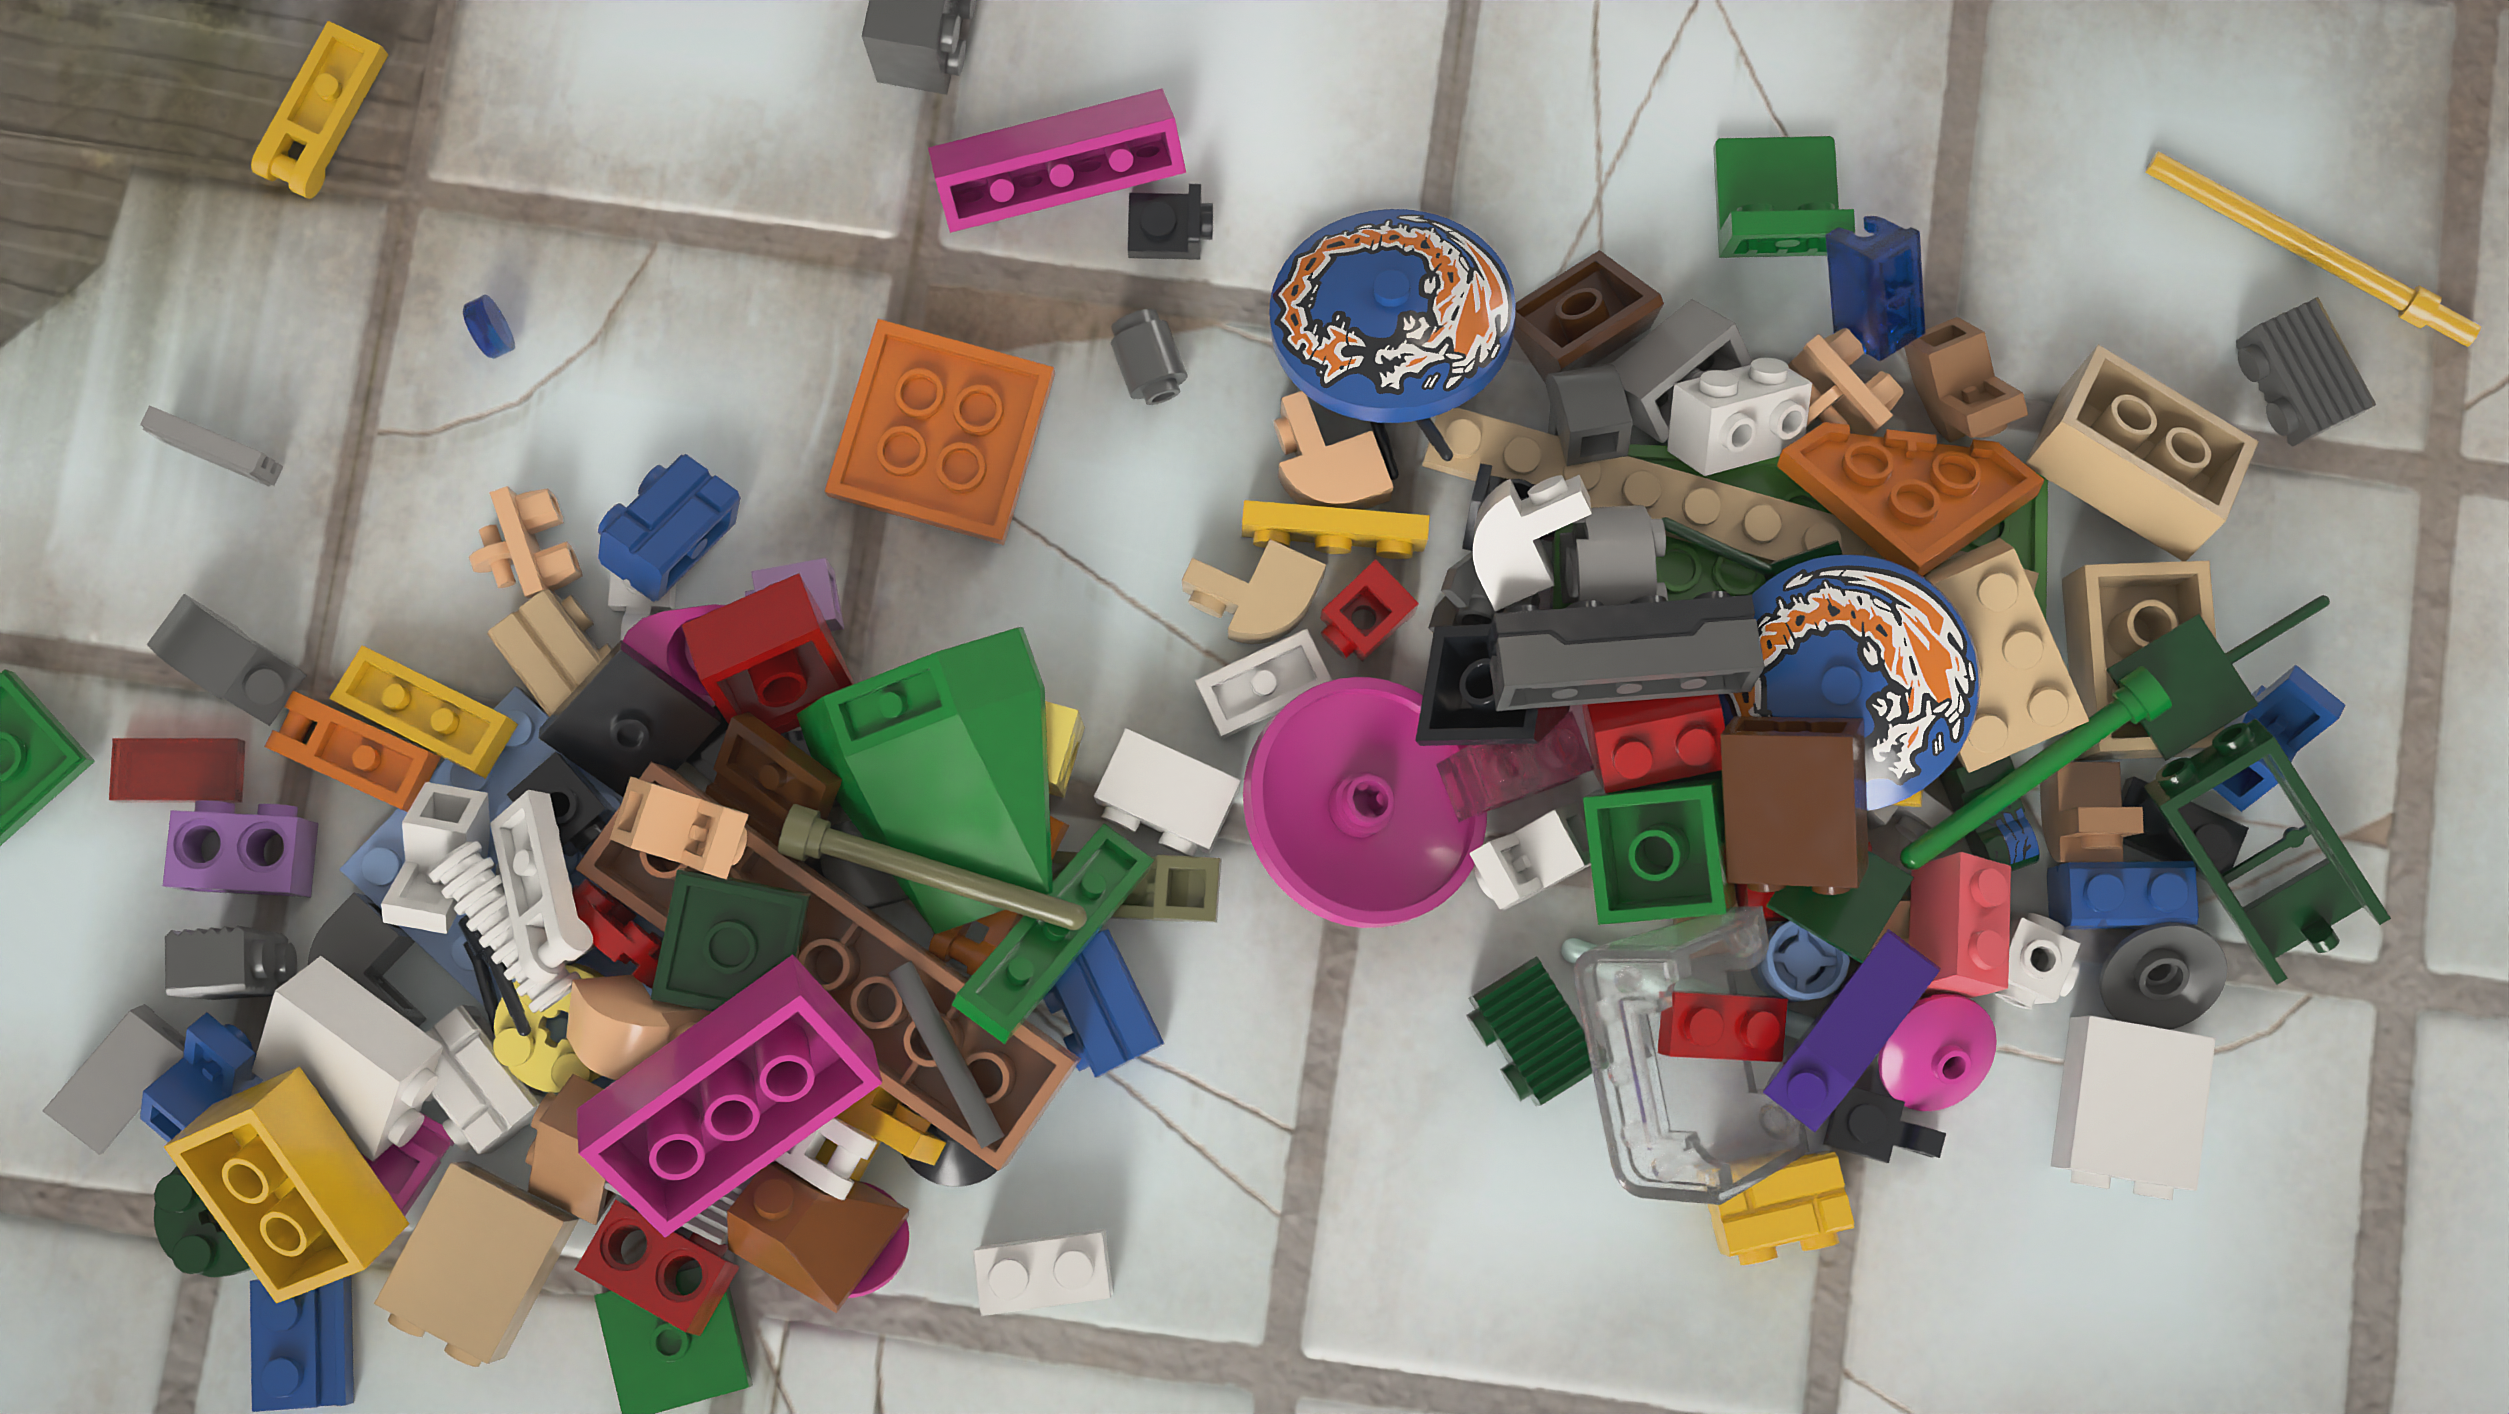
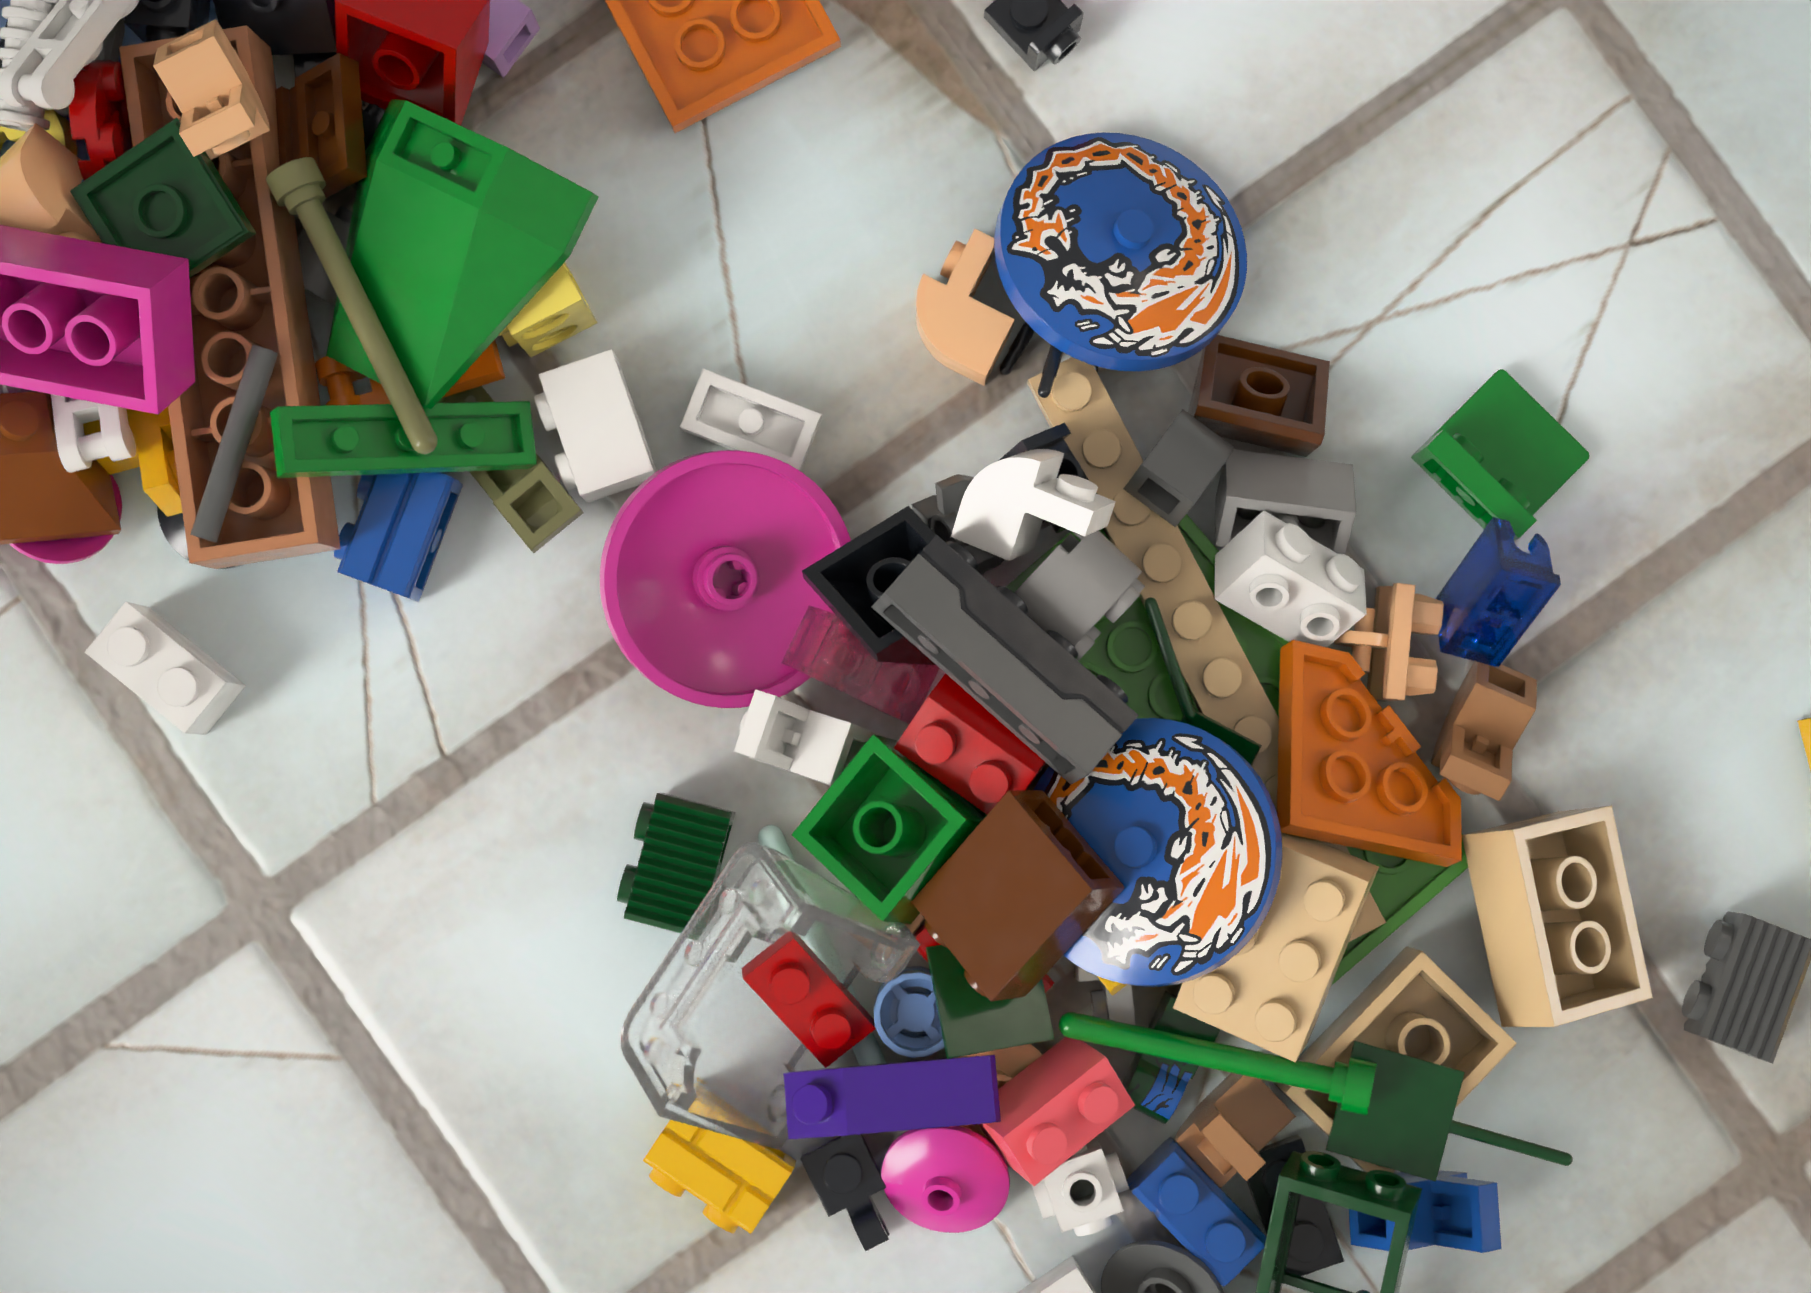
camera: 50 degrees right, 5 degrees up
(1148, 356) = (916, 101): dark grey brick -> none
(1265, 606) = (819, 368): tan brick -> none
(1335, 528) = (916, 363): yellow plate -> none
(1371, 591) = (893, 430): red brick -> none

